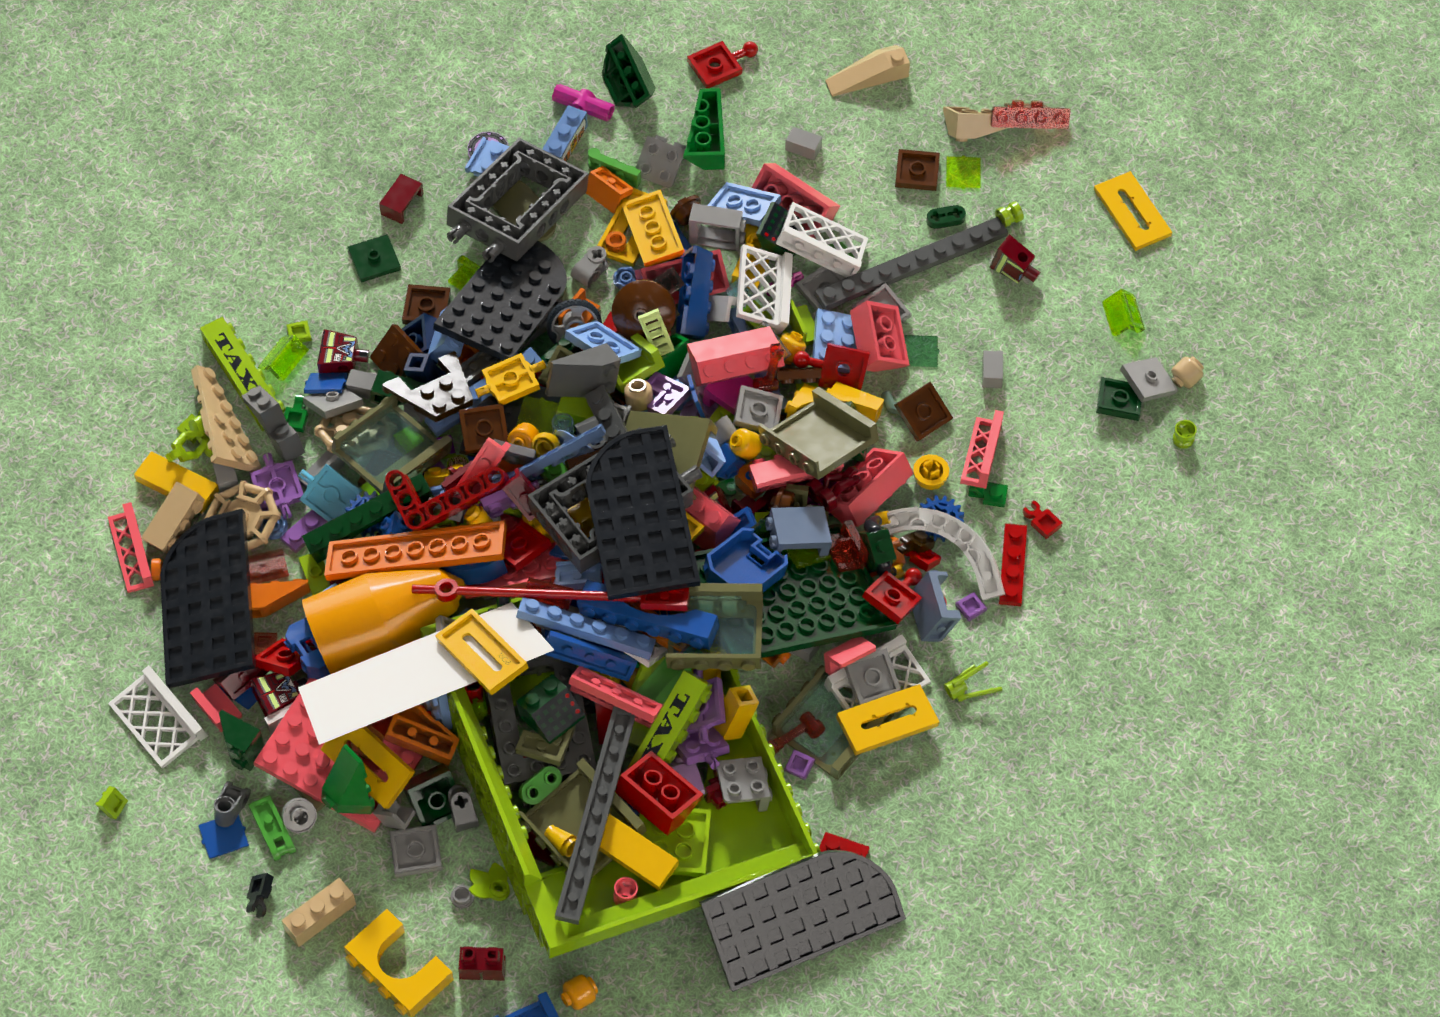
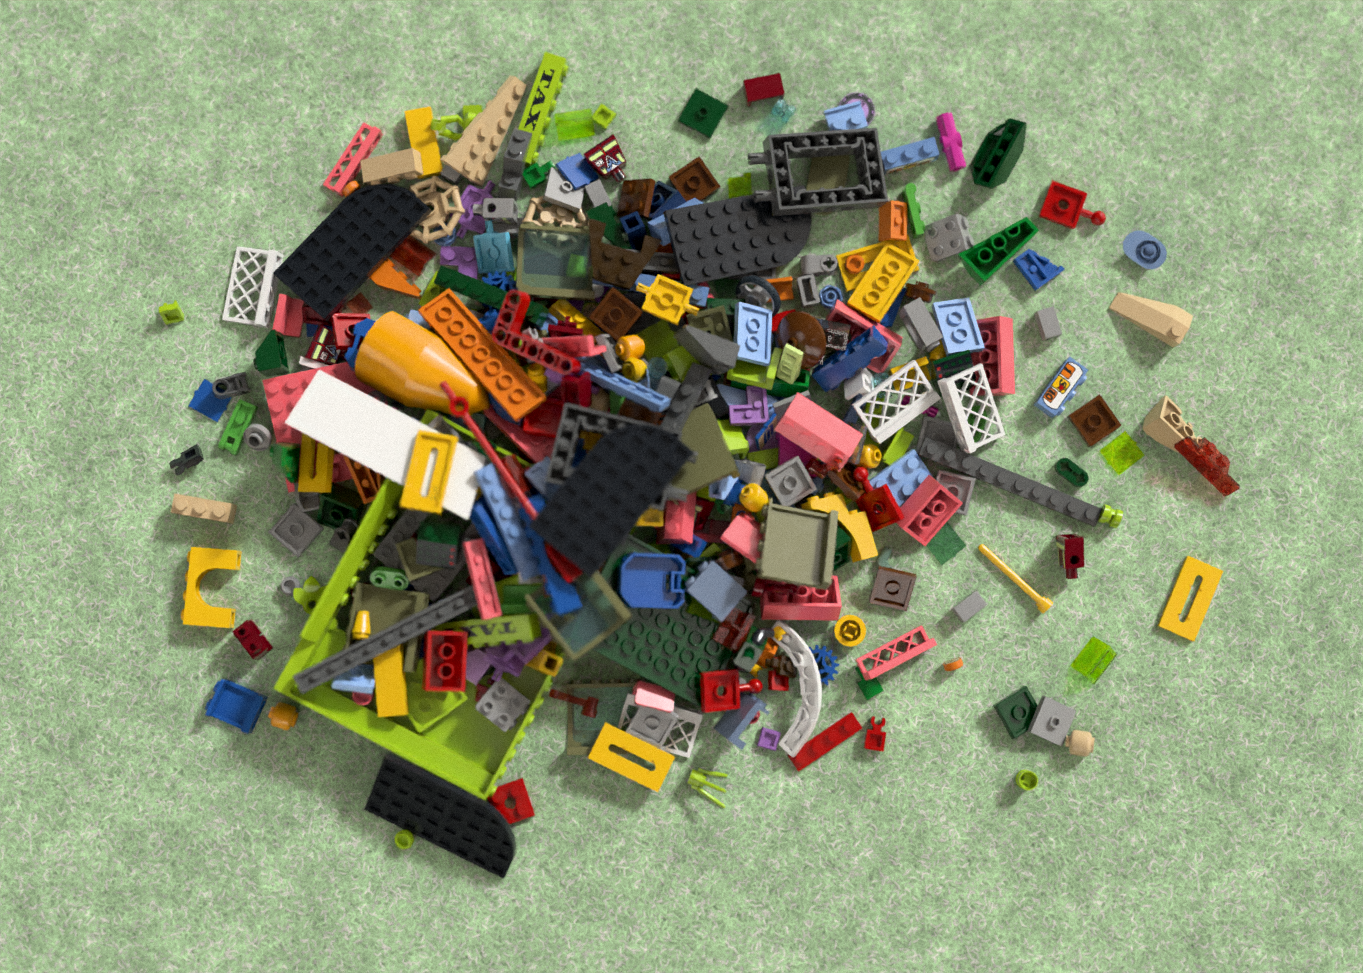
camera: 45 degrees right, 25 degrees up
(301, 454) = (505, 211): none -> light grey torso
(434, 197) = (783, 110): none -> clear light blue wheel
(602, 289) = (808, 291): none -> light grey piece
(607, 878) = (357, 679): none -> light blue plate
(638, 394) = (733, 392): tan head -> none
(748, 119) = (1036, 268): none -> blue wing
(792, 978) = (404, 839): none -> lime plate
(799, 764) = (557, 721): medium lavender tile -> none
(808, 33) = (1144, 249): none -> light blue piece
(867, 171) = (1061, 387): none -> brick
(1032, 417) = (953, 664): none -> orange tile
(1039, 315) = (1042, 602): none -> yellow piece

